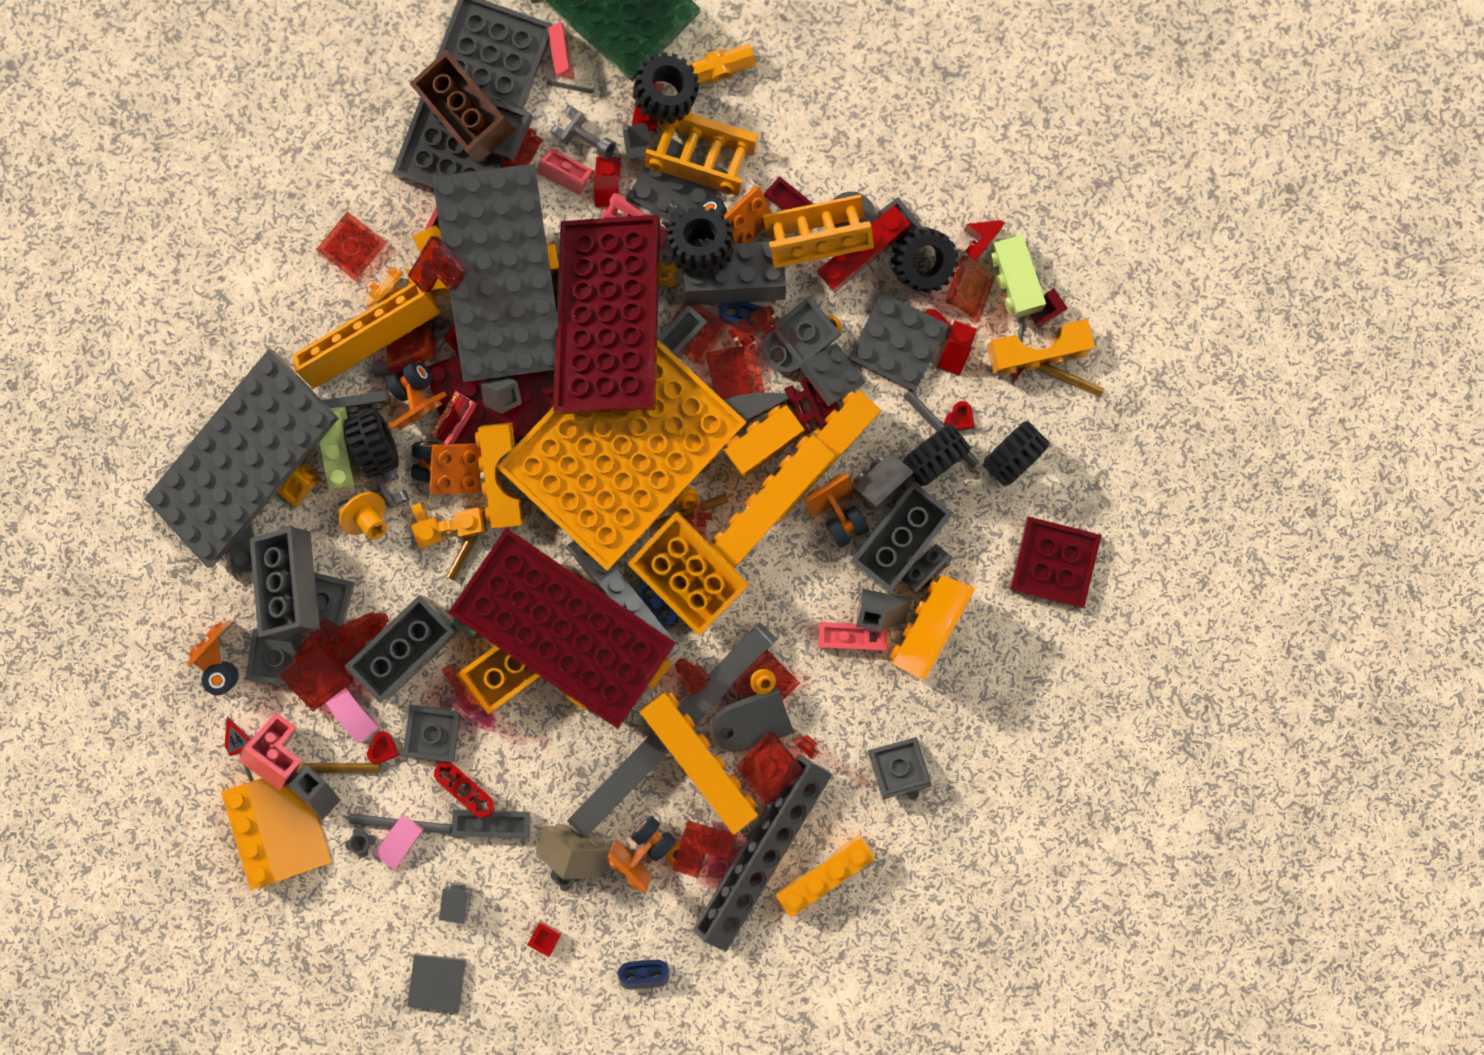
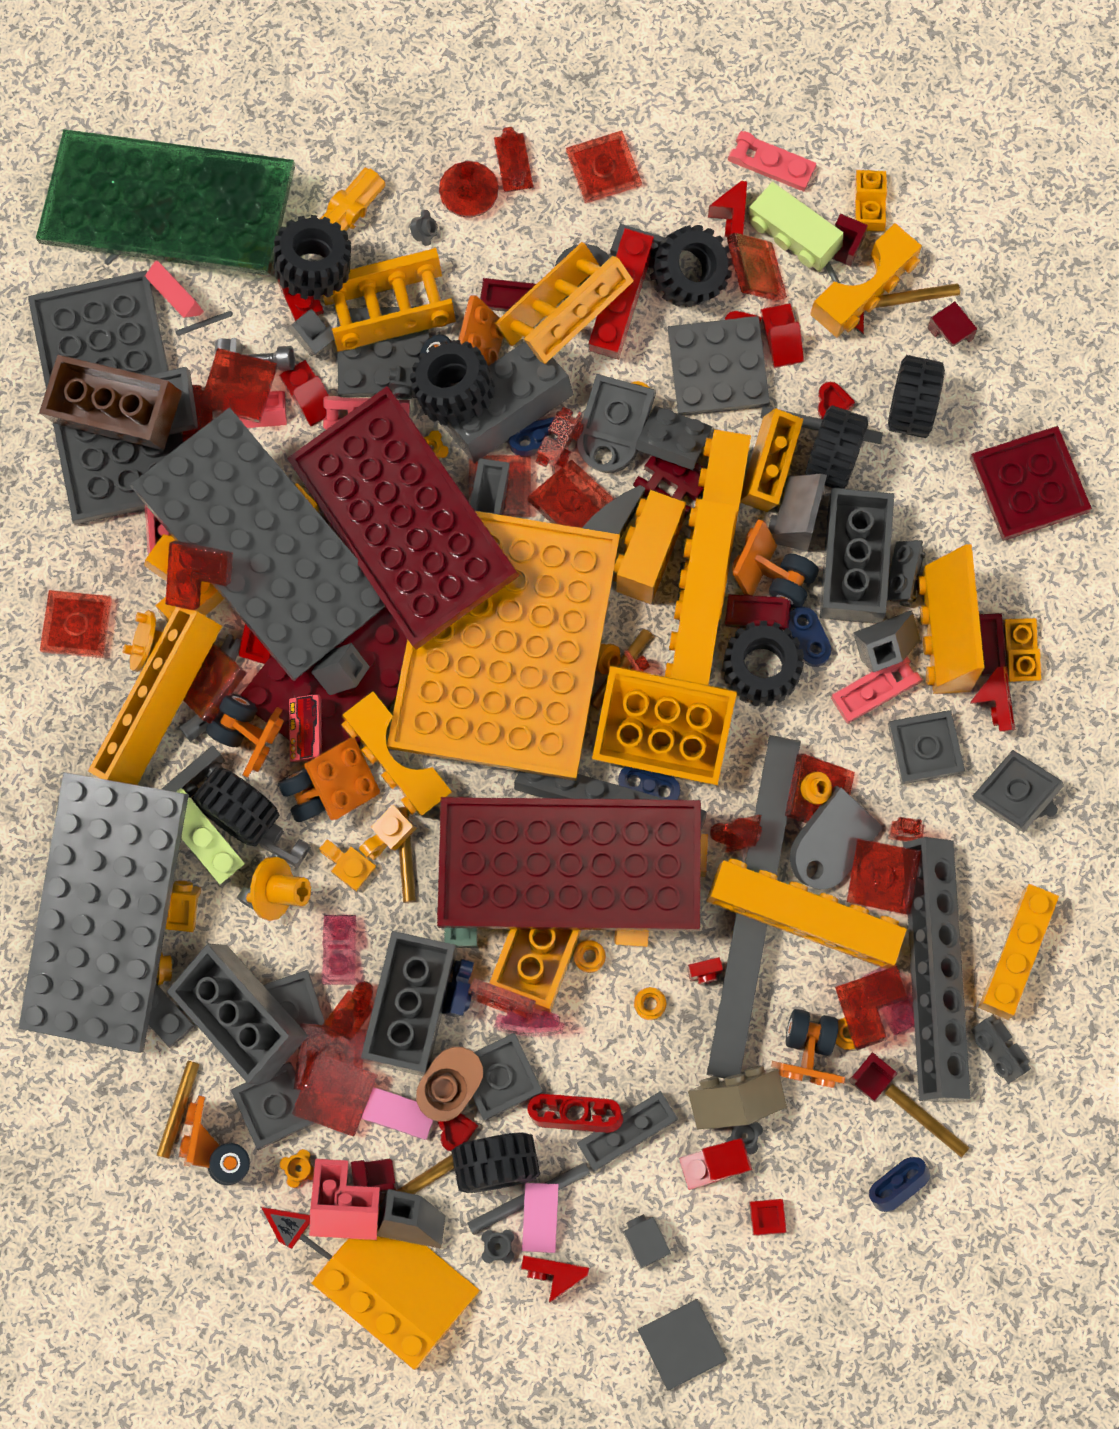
camera: 30 degrees left, 10 degrees down
(214, 618) = (178, 1109): none -> pearl gold bar
(261, 519) = (164, 970): none -> light orange plate
(262, 701) = (289, 1166): none -> light orange plate
(308, 746) = (374, 1174): none -> dark red panel
(384, 580) = (339, 949): none -> clear pink slope
(388, 792) = (495, 1162): none -> black tyre
(389, 888) = (564, 1274): none -> red slope
(392, 719) = (449, 1083): none -> nougat piece
(442, 659) = (458, 995): none -> dark blue plate
(533, 883) = (715, 1163): none -> red slope
(535, 692) = (589, 945): none -> light orange plate
(553, 749) = (652, 993): none -> light orange plate
(561, 148) = (238, 383): none -> clear red tile
(610, 752) = (705, 971): none -> red plate
(673, 893) = (873, 1077): none -> dark red panel
(691, 944) = (926, 1120): none -> pearl gold bar
(761, 113) = (423, 228): none -> dark grey plate
(771, 942) = (991, 1037): none -> dark grey hinge
(809, 532) = (749, 608): none -> dark red tile
(809, 565) = (755, 687): none -> black tyre
(811, 104) = (468, 189): none -> clear red piece
(832, 570) = (810, 635): none -> dark blue plate
(855, 103) = (513, 160): none -> clear red hinge
(859, 697) = (926, 747): none -> dark grey plate
(887, 433) = (771, 460): none -> light orange brick
(915, 147) = (603, 166): none -> clear red plate
(932, 694) = (998, 690): none -> red slope
(951, 655) = (992, 642): none -> dark red tile
(970, 673) = (1022, 649): none -> light orange slope
(1035, 218) = (772, 161): none -> coral plate
(1077, 417) = (952, 324): none -> dark red panel
(1084, 289) = (871, 199): none -> light orange slope

